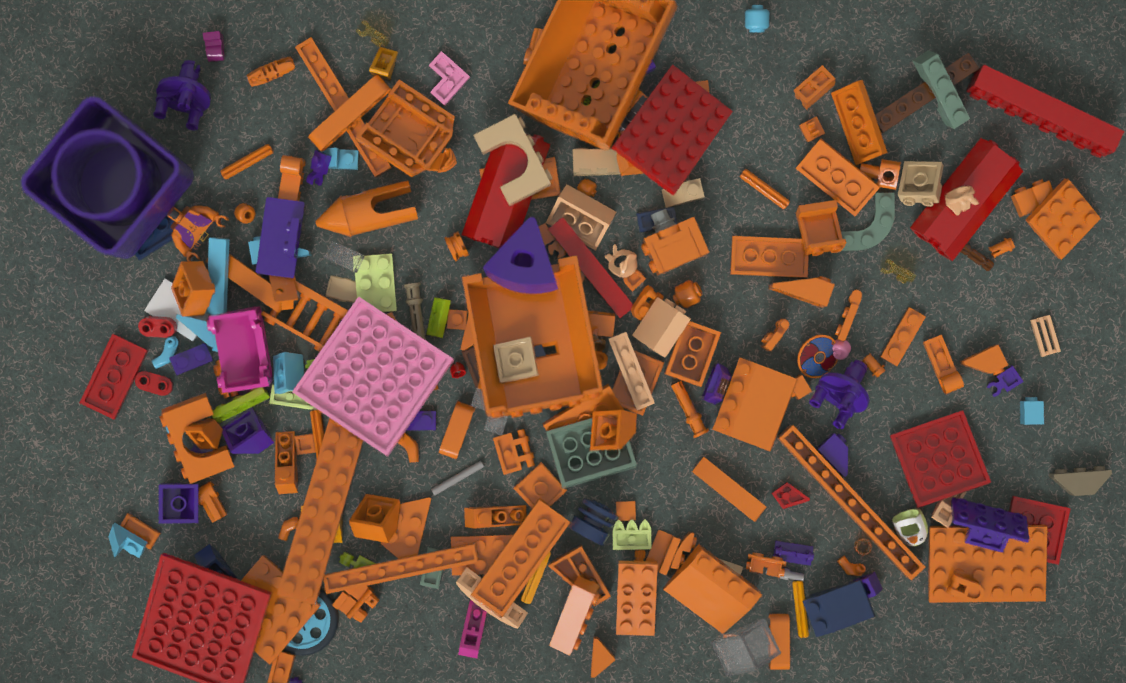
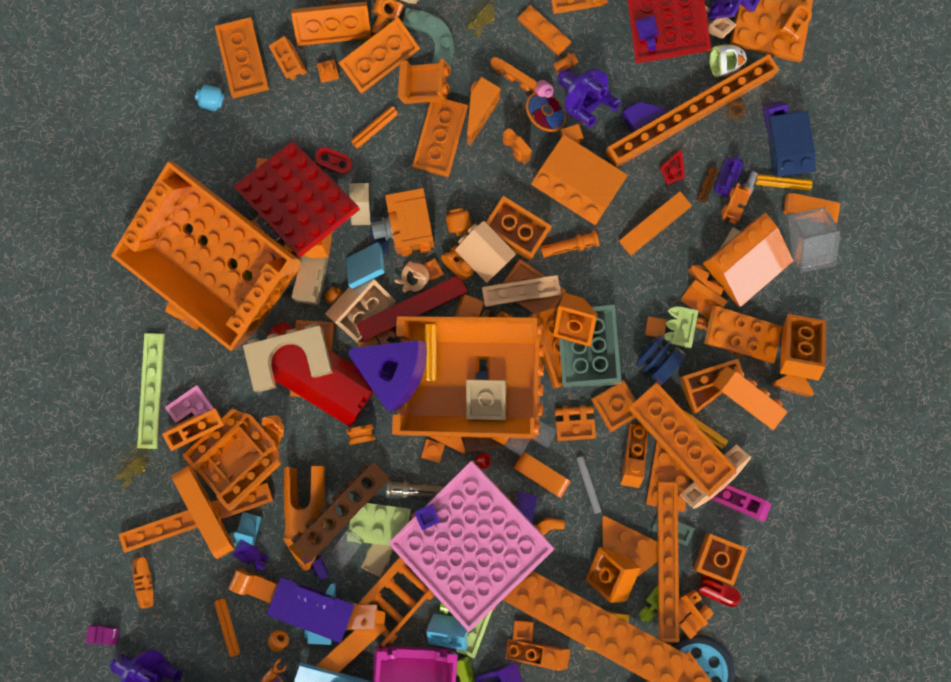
camera: 80 degrees left, 5 degrees down
(287, 526) = (601, 666): orange arm -> none
(318, 431) = (512, 614): orange axle -> none
(321, 236) = (319, 568): none -> dark purple plate
(382, 624) = (719, 592): none -> red arm
(384, 63) = (163, 467): light orange slope -> none
(390, 328) = (427, 517): none -> dark purple plate
(413, 617) = (719, 558): none -> orange brick
(416, 270) = (308, 551): none -> reddish brown brick
(426, 83) = (192, 428): none -> orange slope
(438, 317) = (426, 468): lime plate -> none
(454, 33) = (151, 391): none -> yellowish green tile
(561, 293) = (430, 340): none -> light orange axle
(622, 212) = (365, 265): none -> medium azure tile
(636, 658) = (803, 347): none -> orange brick
(717, 384) = (552, 212): dark purple slope -> none
(722, 157) = (334, 160): none -> red plate
(781, 533) = (707, 184): none -> reddish brown axle
(805, 40) = (241, 57): none -> orange plate
(851, 568) = (754, 127): orange arm -> none
(923, 440) = (647, 30): none -> dark purple plate

